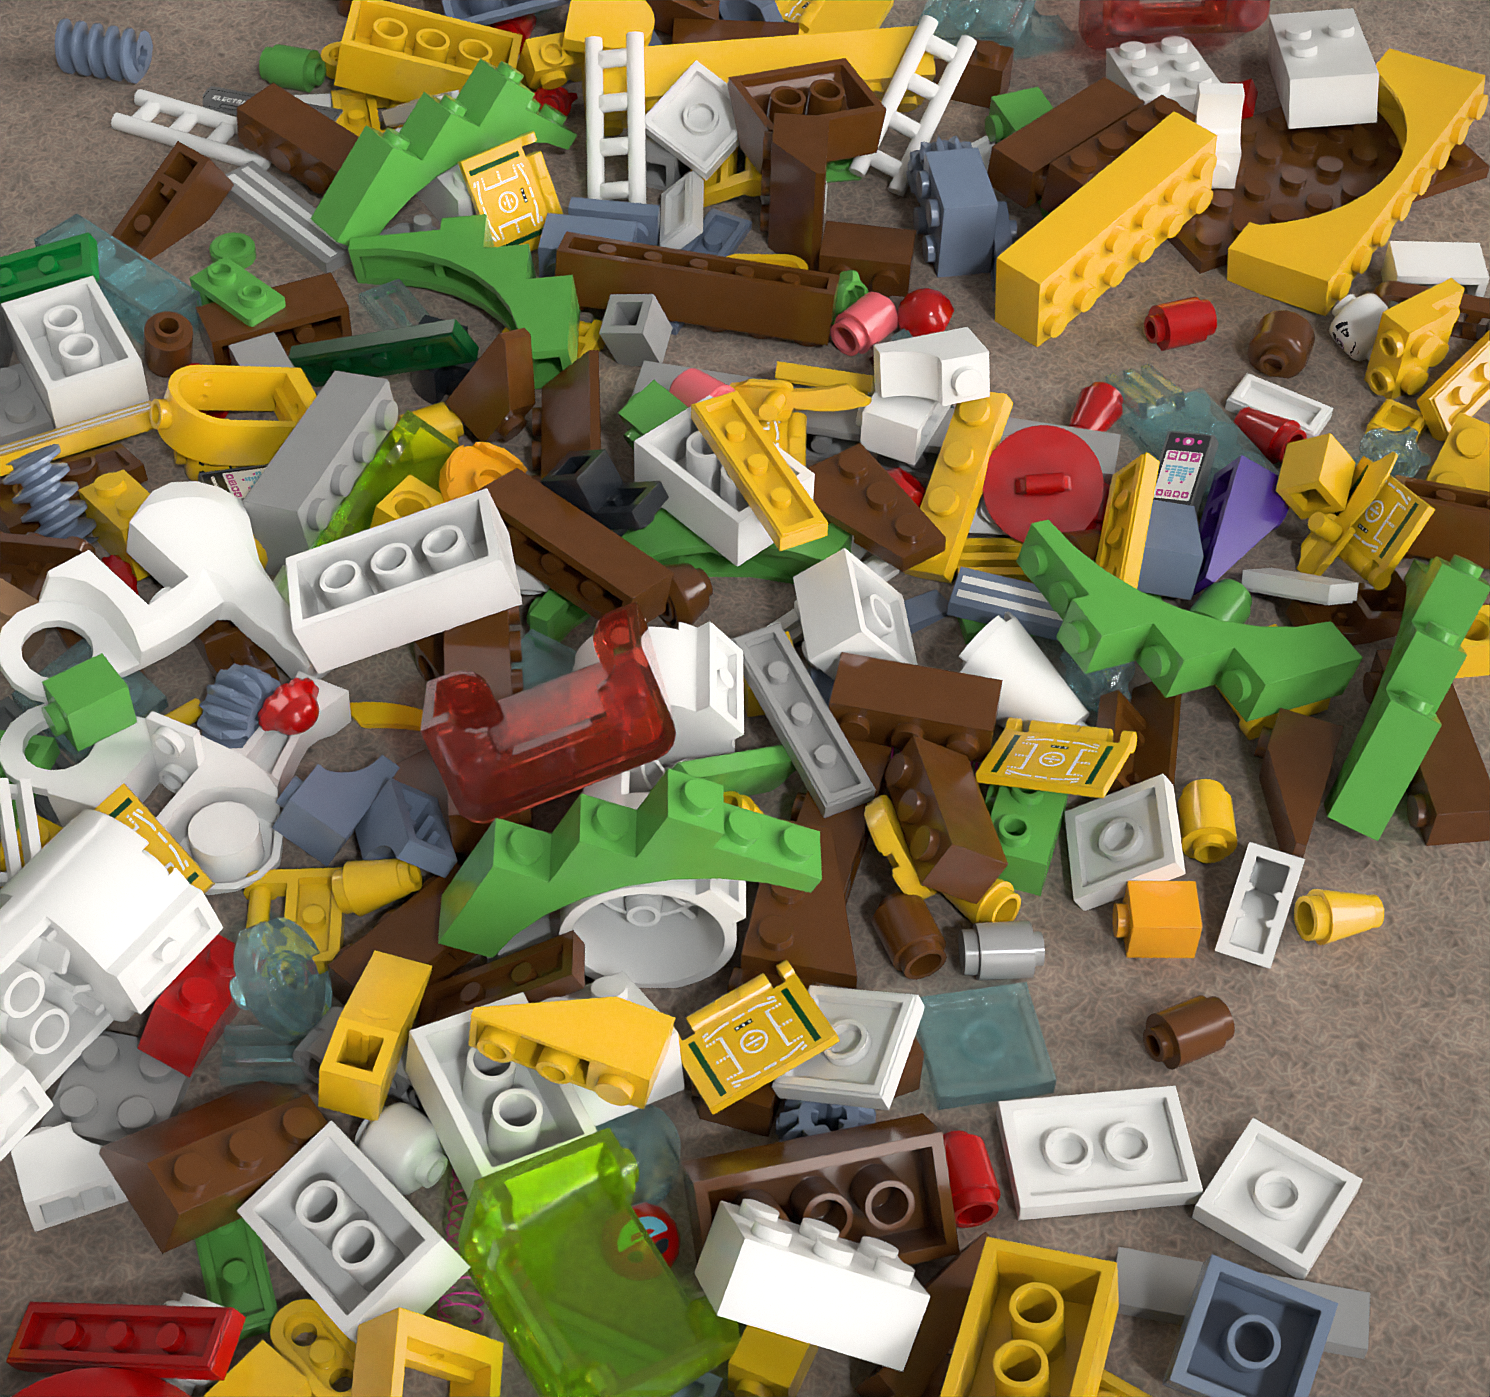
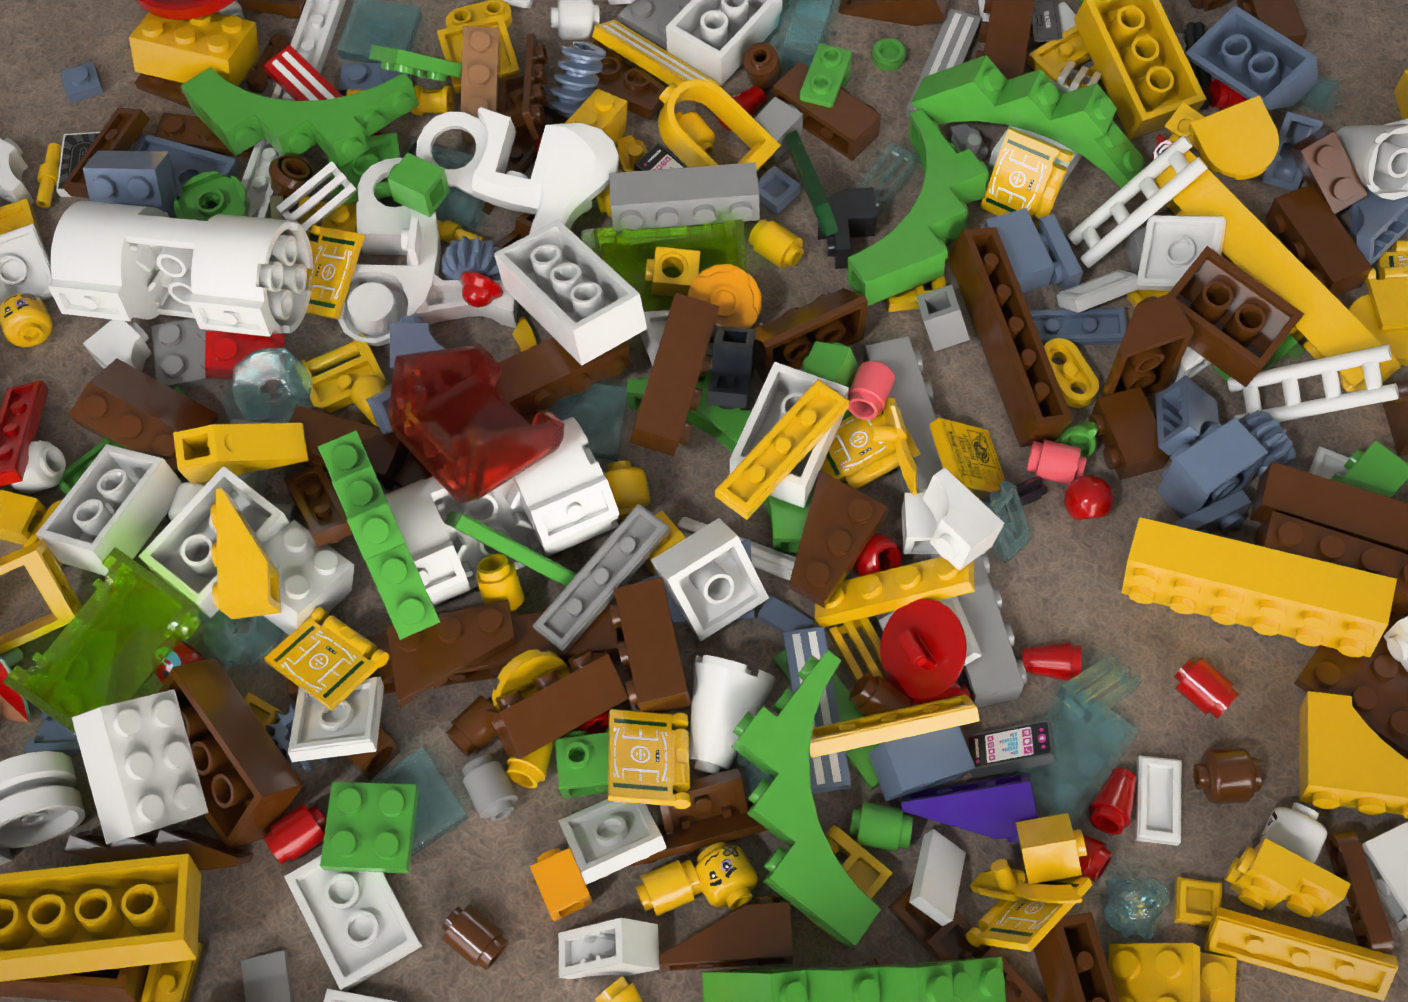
camera: 70 degrees right, 15 degrees up
(498, 389) = (817, 263): reddish brown slope -> none
(687, 595) = (705, 459): reddish brown cone -> none
(883, 203) = (1183, 414): none -> sand blue arch
(1001, 1082) = (370, 827): none -> bright green plate
(1219, 757) = (726, 876): none -> yellow head

